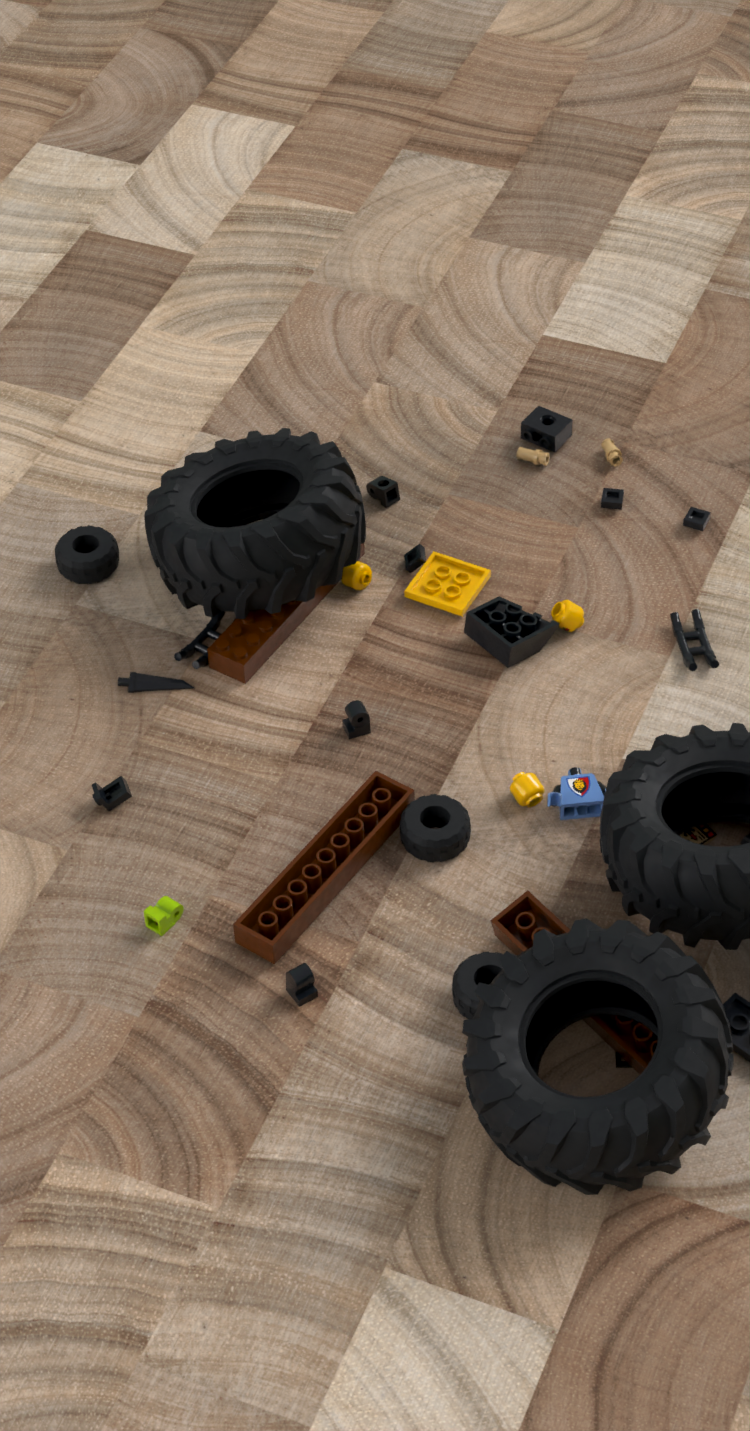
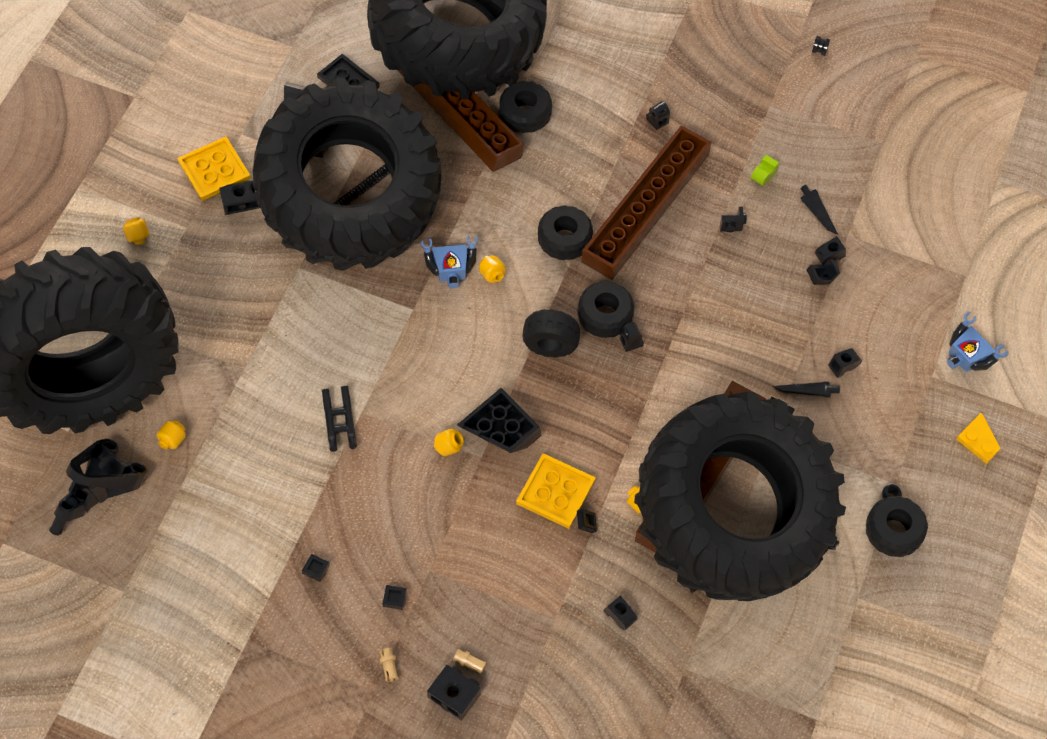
camera: 175 degrees right, 15 degrees up
(47, 1094) = (820, 45): none -> black wheel
(83, 589) = (891, 489): none -> black plate
(95, 817) = (831, 250): none -> black leg
(102, 880) = (815, 205): none -> black bar
(104, 702) = (844, 361): none -> black leg
(215, 849) = (733, 223): none -> black bracket
(386, 744) = (609, 295): none -> black tyre
(453, 704) = (551, 333): none -> black tyre

